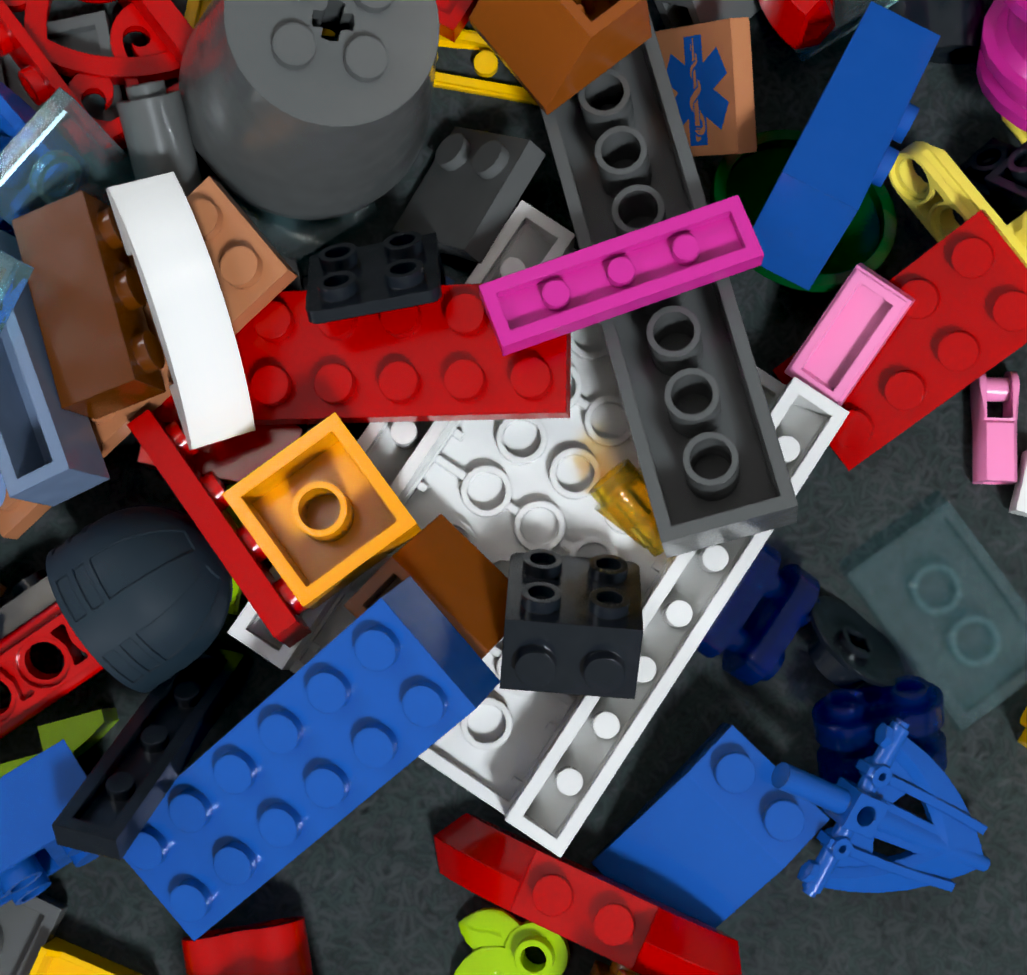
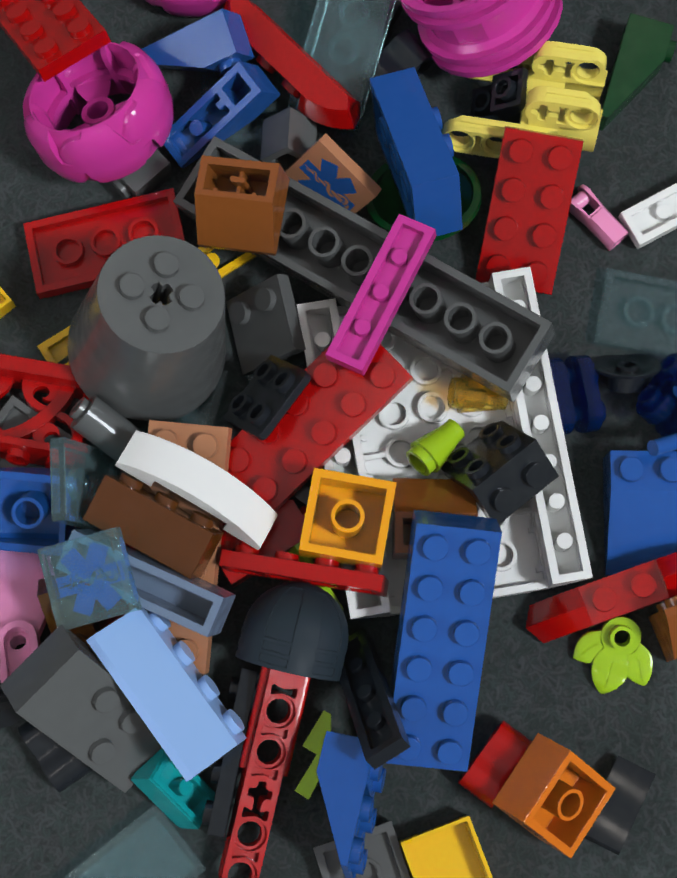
camera: 45 degrees left, 5 degrees down
(526, 524) = (433, 449): none -> lime cone
(850, 334) = (497, 232): bright pink tile -> none

